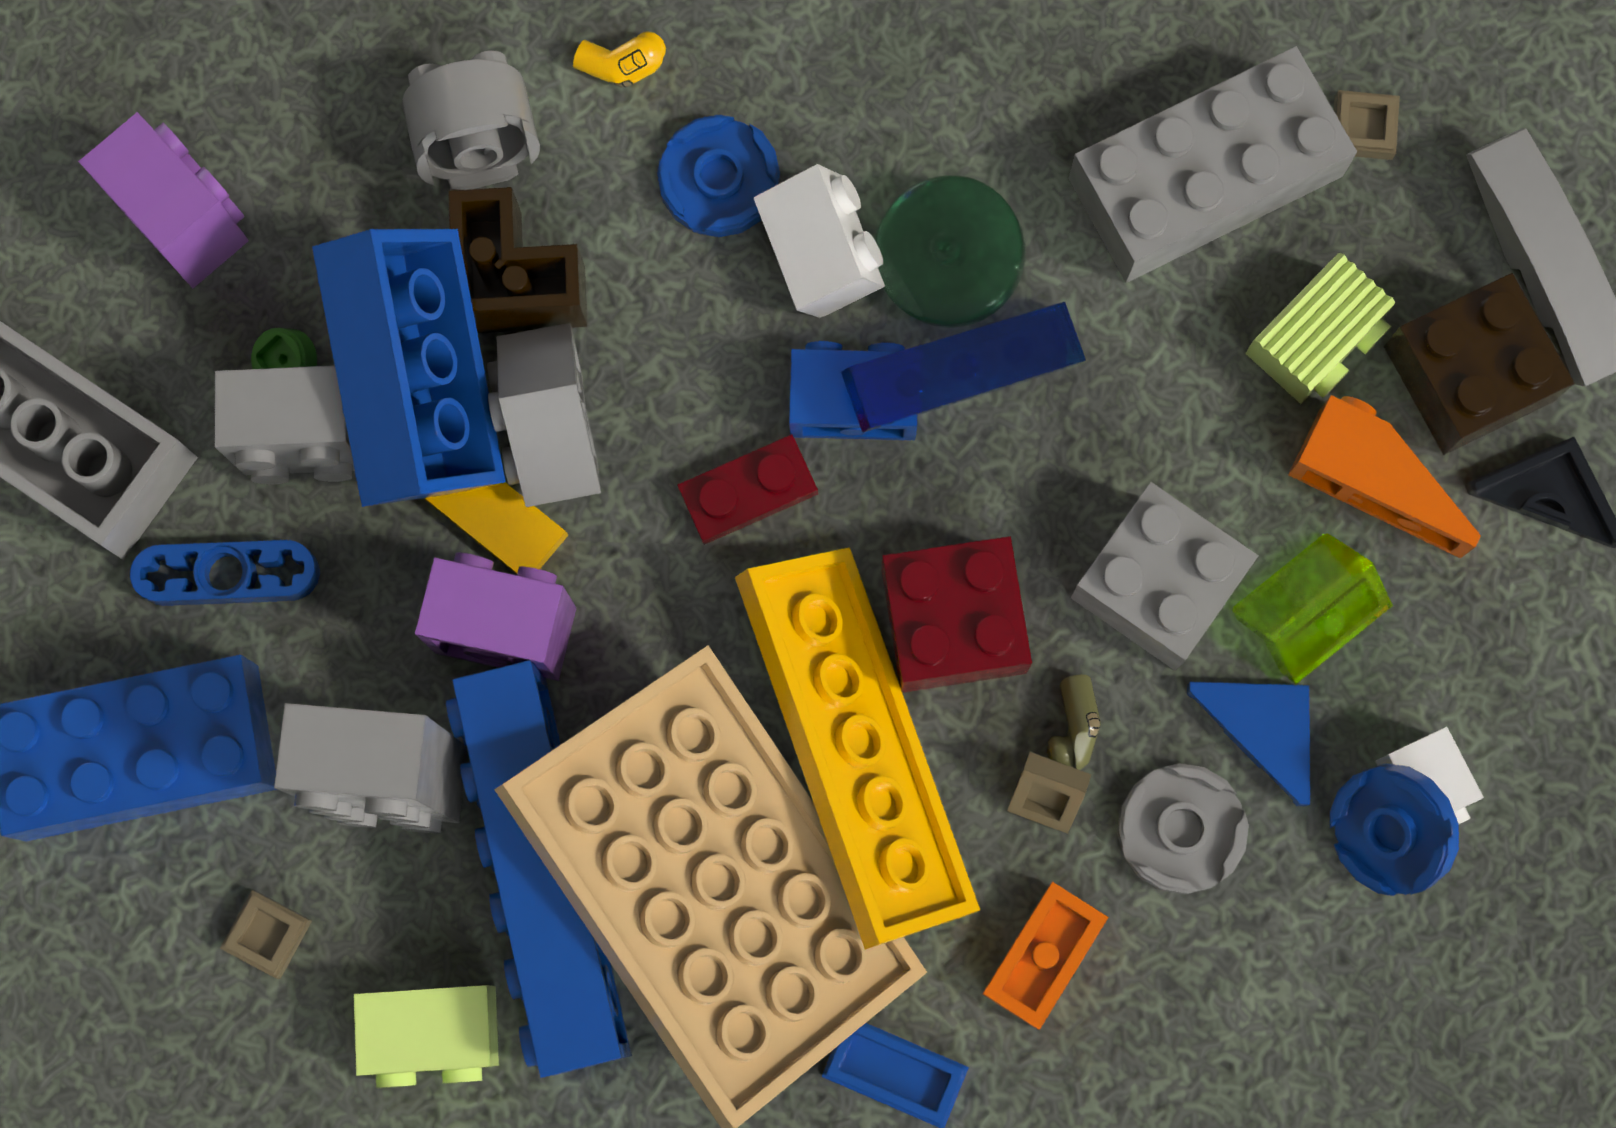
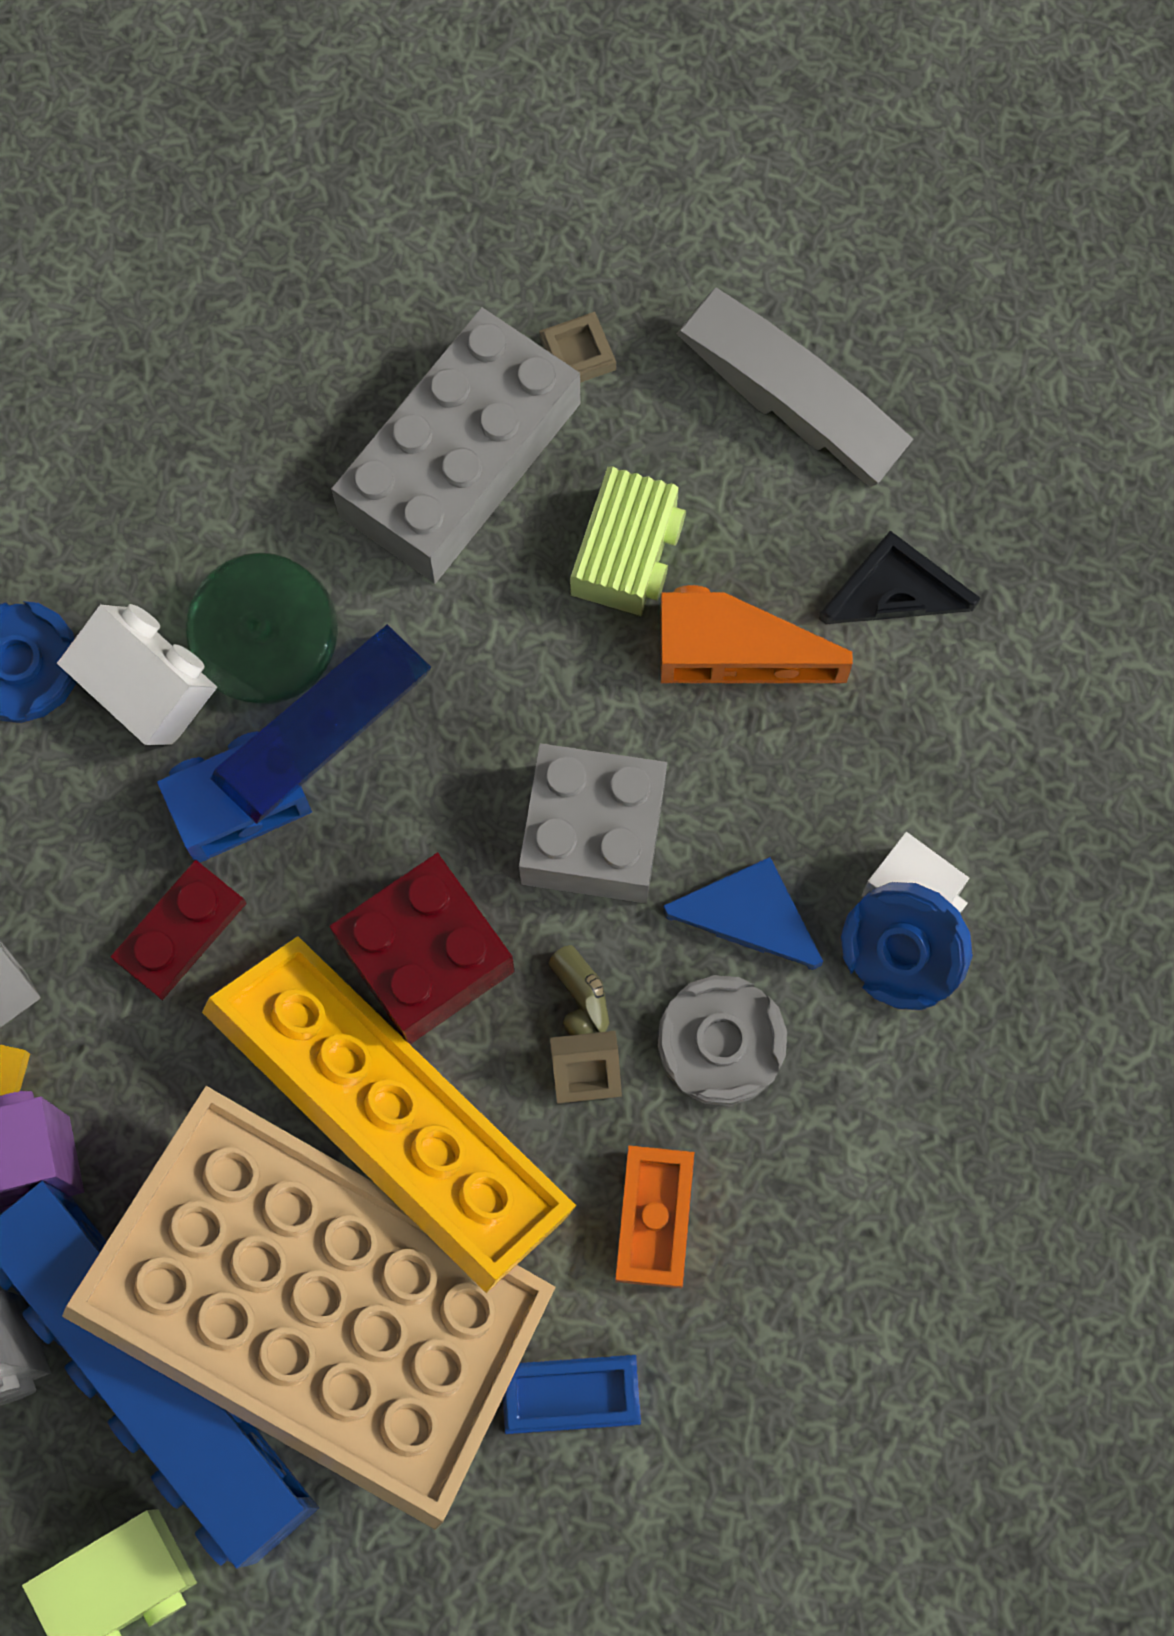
camera: 30 degrees left, 5 degrees down
(1314, 605) = (740, 785): clear neon green panel -> none
(1478, 363) = (776, 506): dark brown brick -> none

